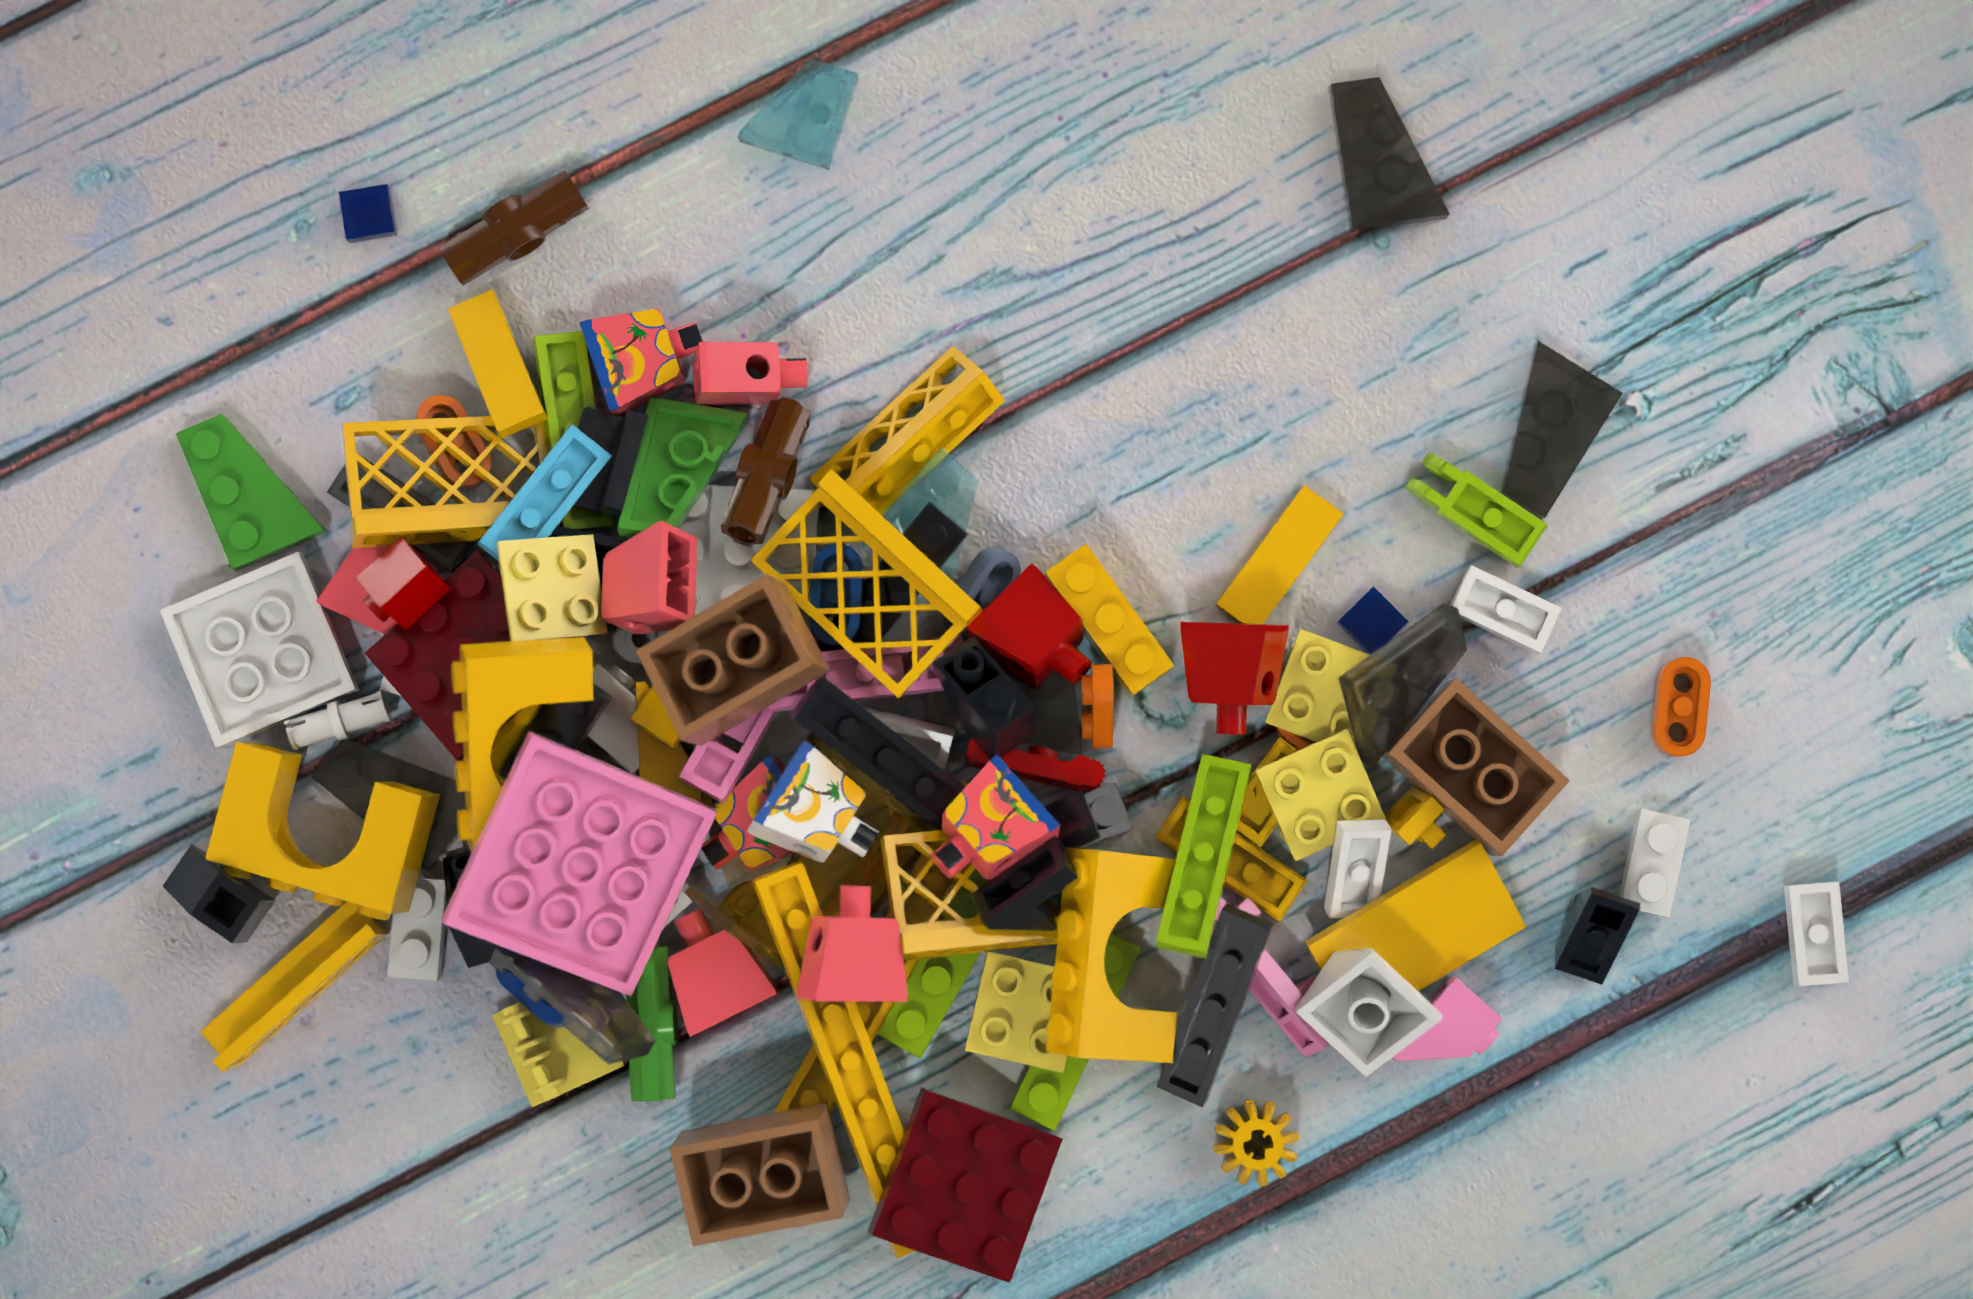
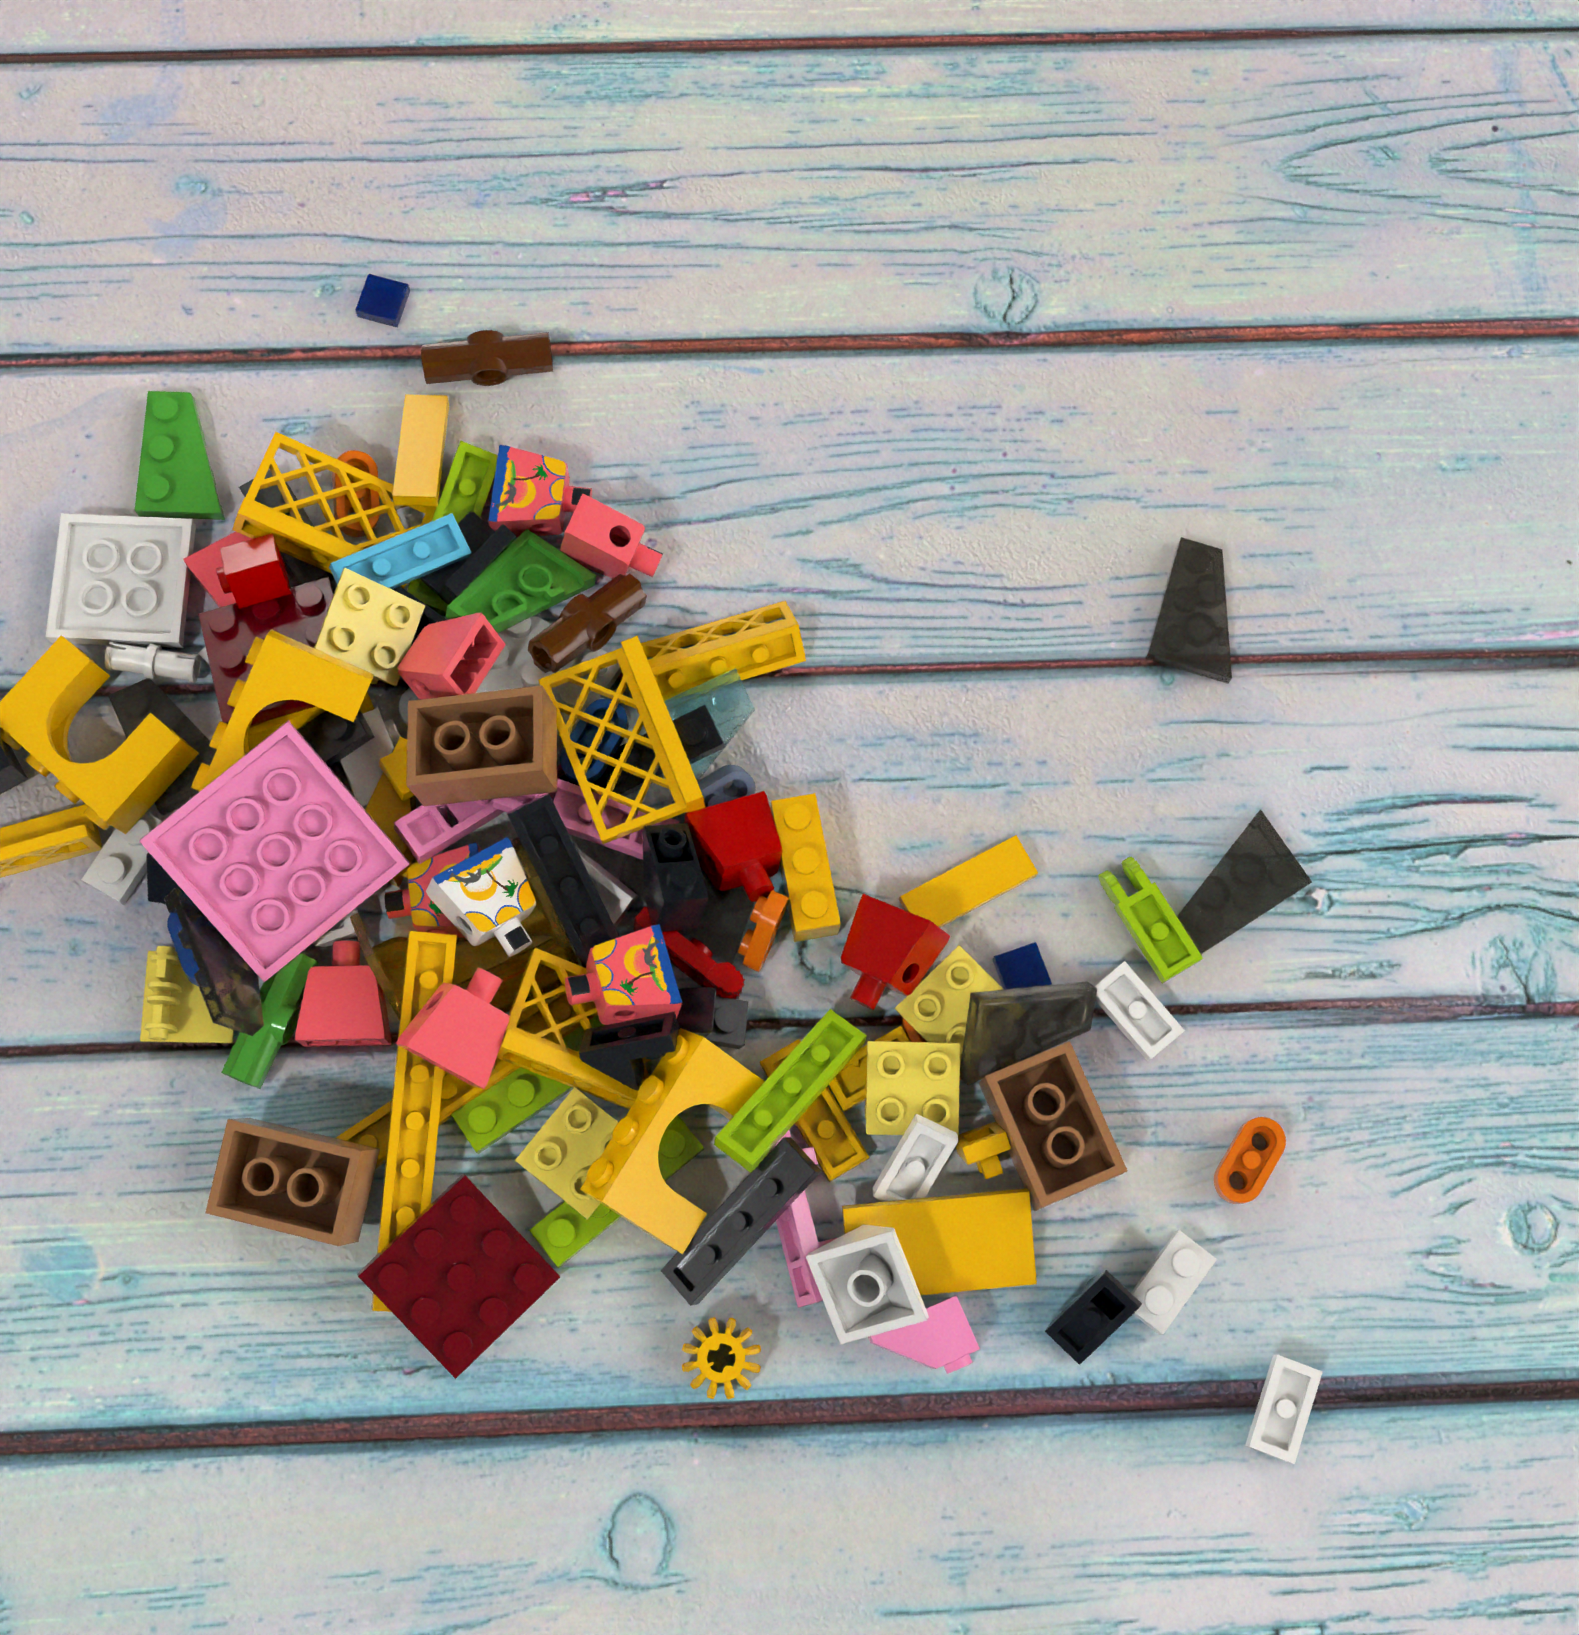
camera: 20 degrees right, 10 degrees down
(805, 115) = (755, 378): clear light blue wing -> none

